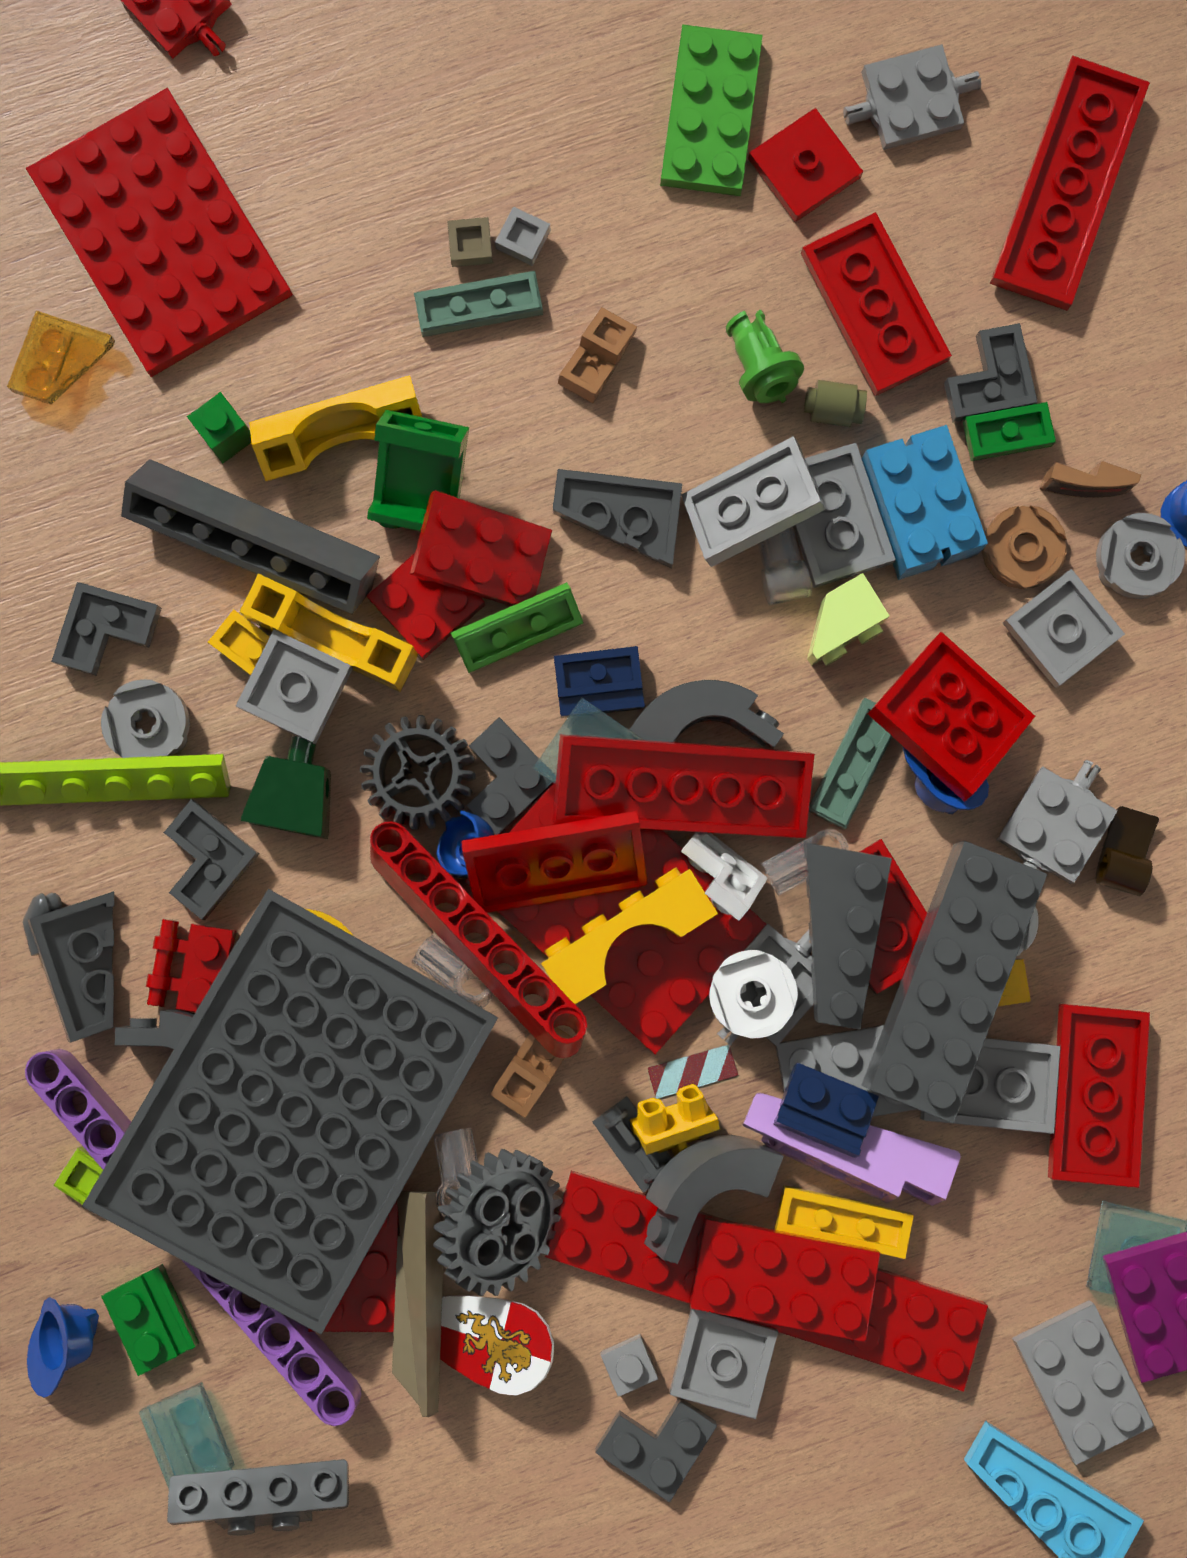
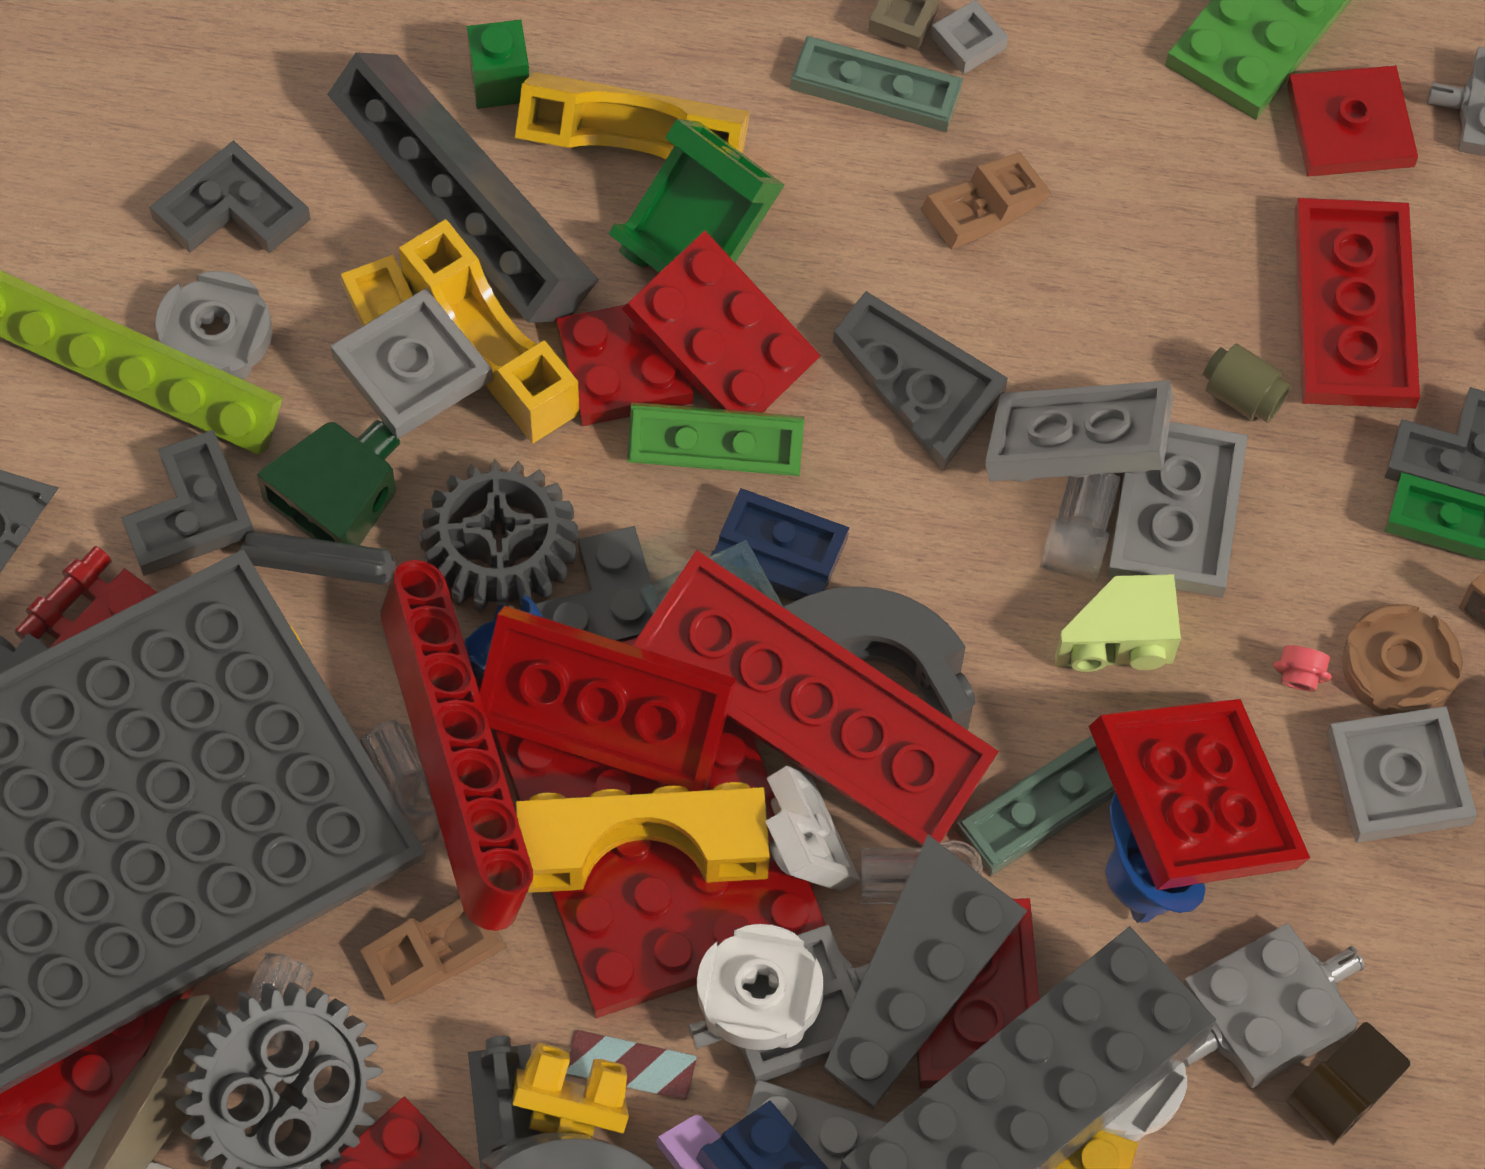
camera: 25 degrees right, 20 degrees down
(313, 854) = (319, 557): none -> dark grey axle
(768, 370) = (1181, 303): bright green piece -> none
(924, 502) = (1295, 540): dark azure piece -> none
(968, 587) = (1303, 668): none -> coral plate

